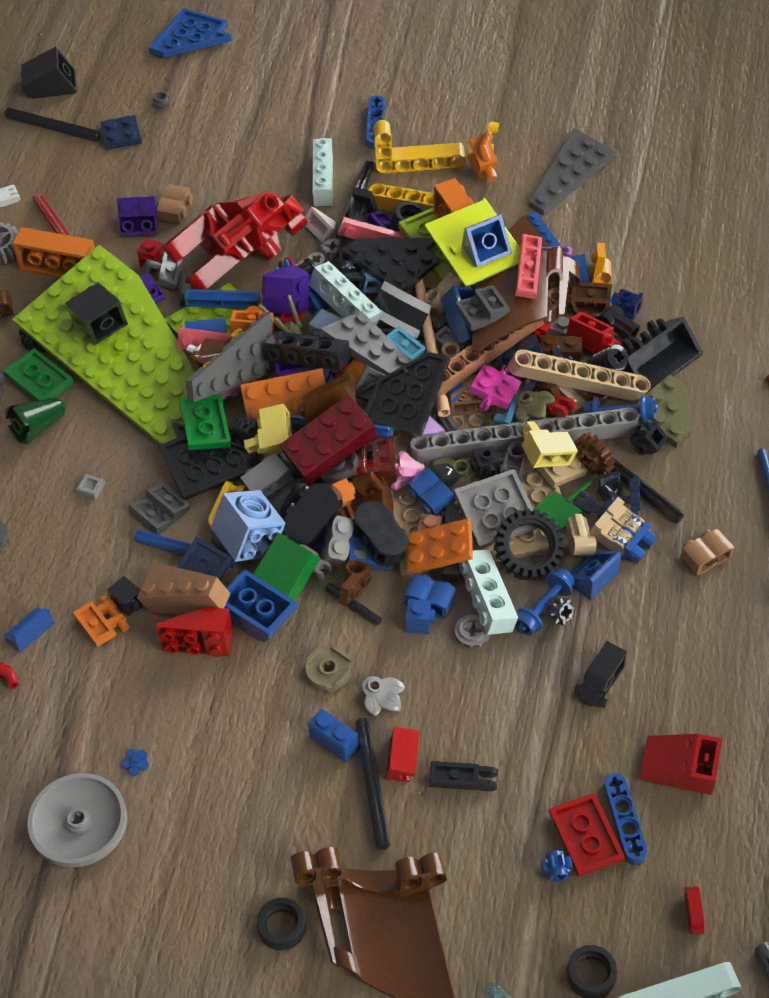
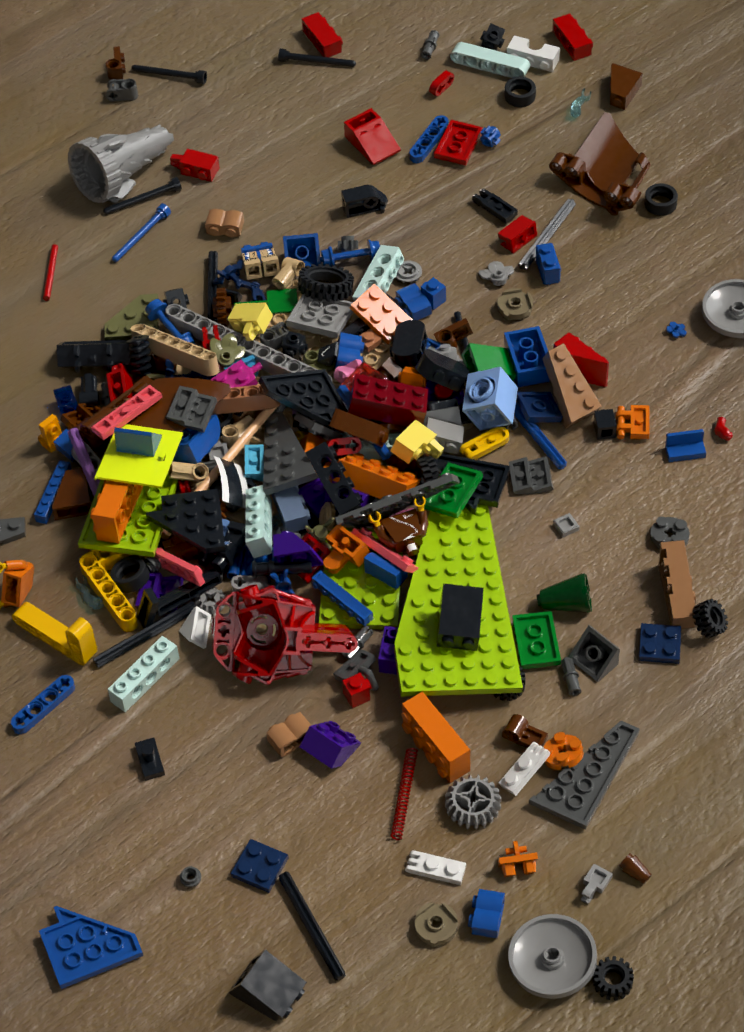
camera: 140 degrees left, 0 degrees up
(263, 139) = (149, 759): none -> black tile

